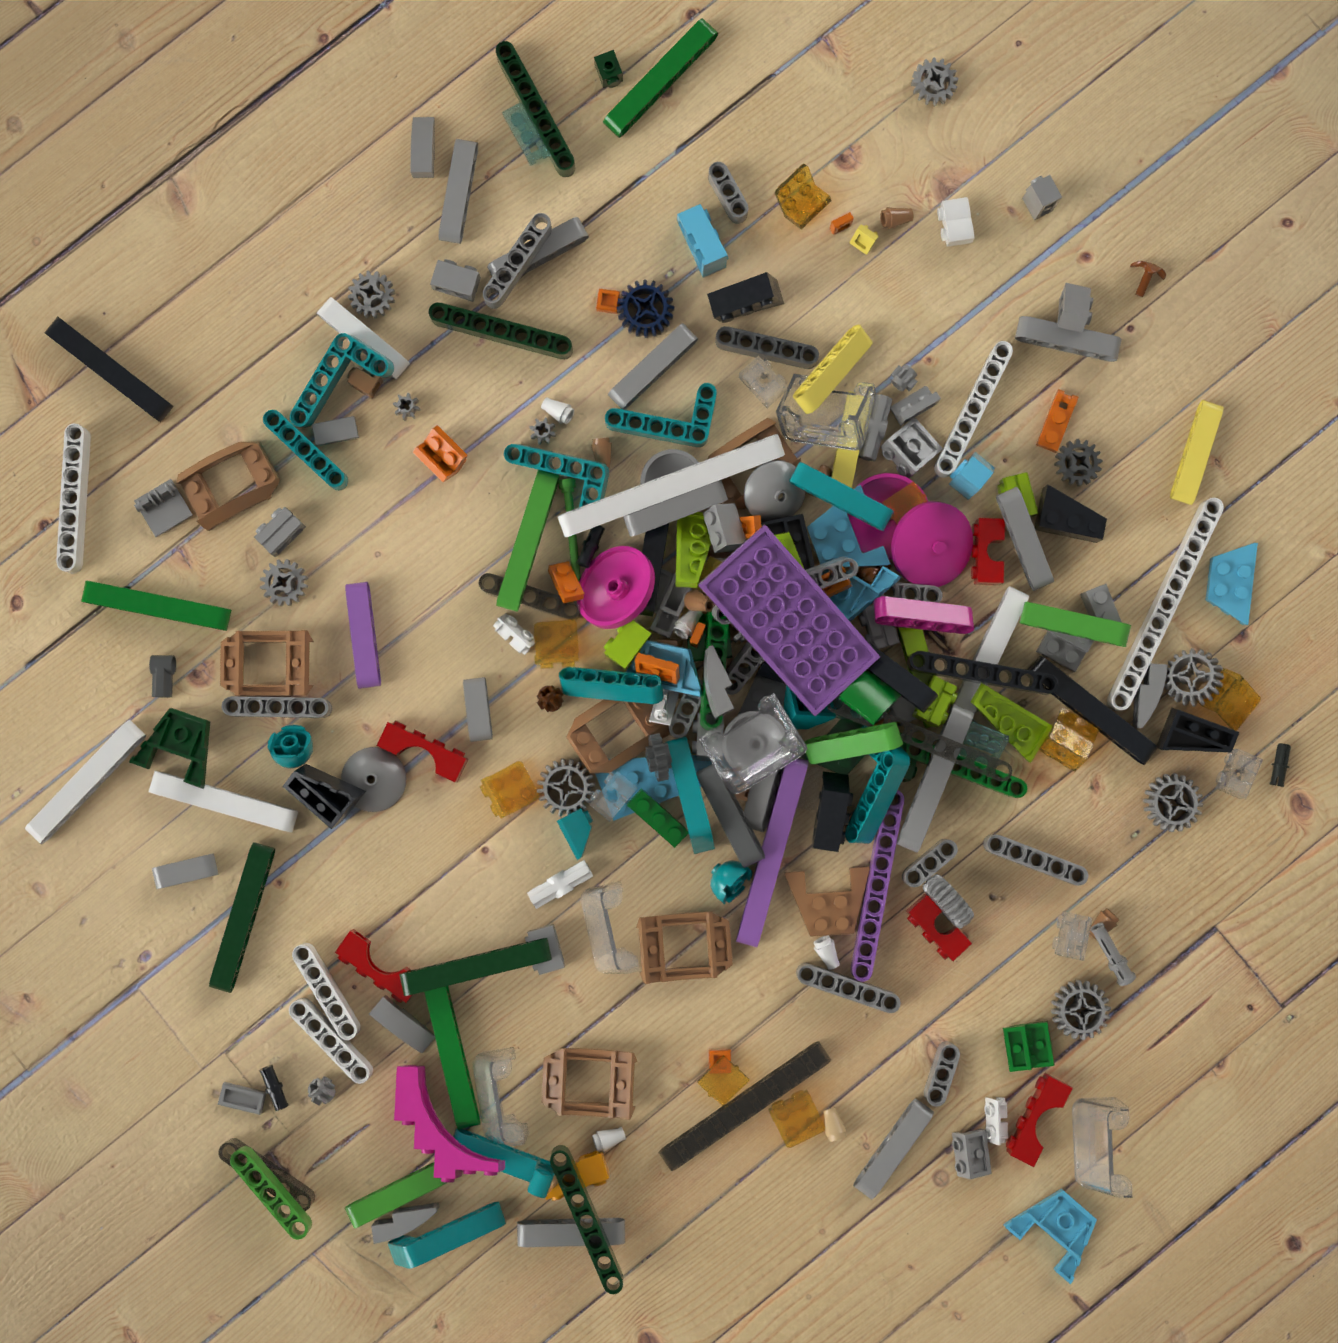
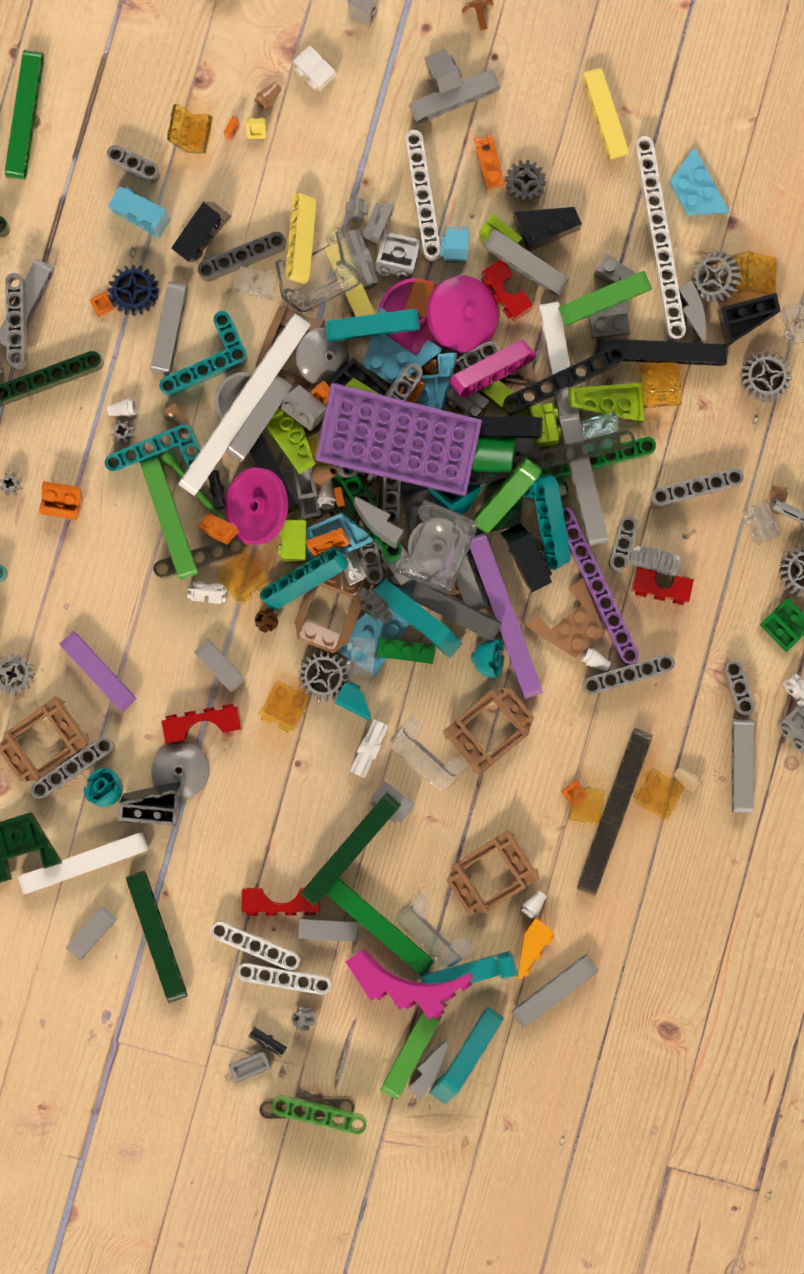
camera: 30 degrees left, 0 degrees up
(590, 1229) = (565, 978): dark green beam -> none

